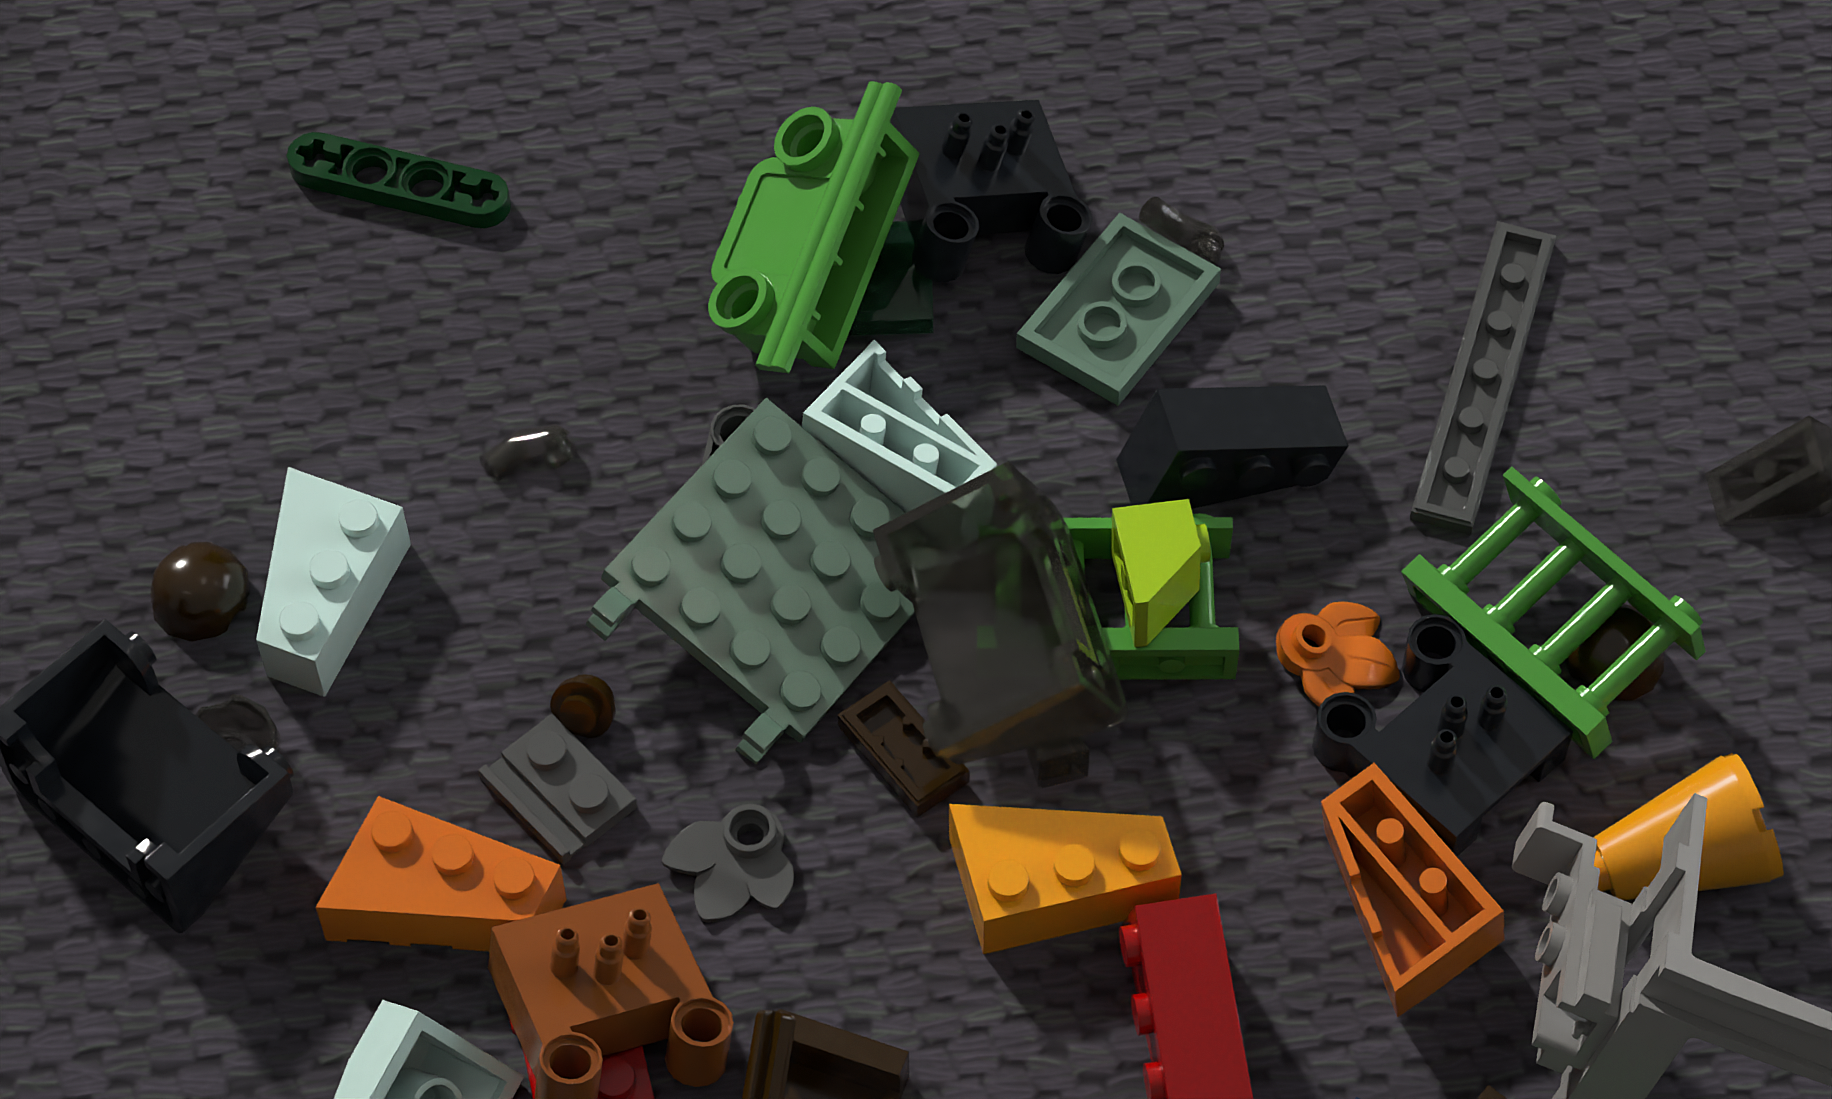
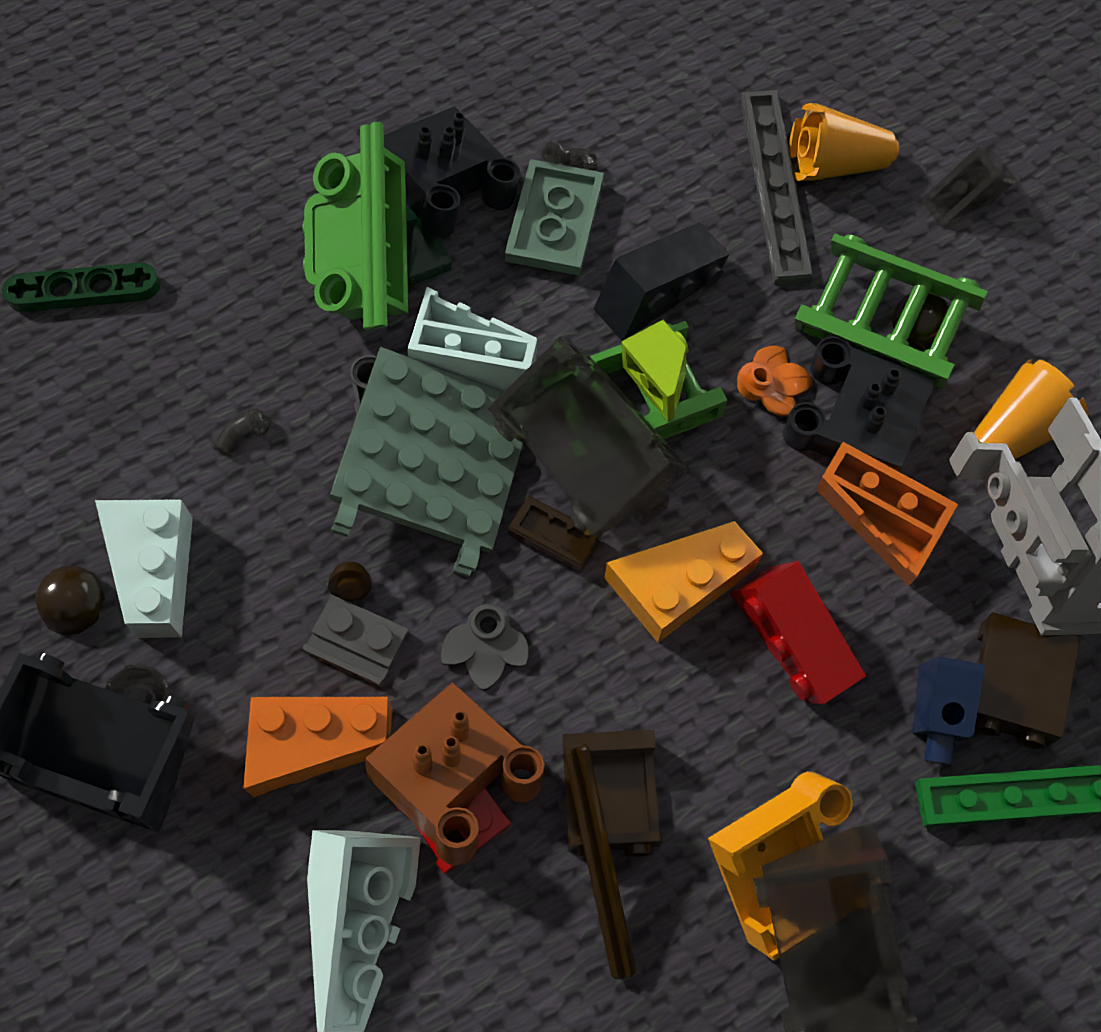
camera: 25 degrees left, 10 degrees up
(1607, 348) = (838, 144): none -> light orange cone

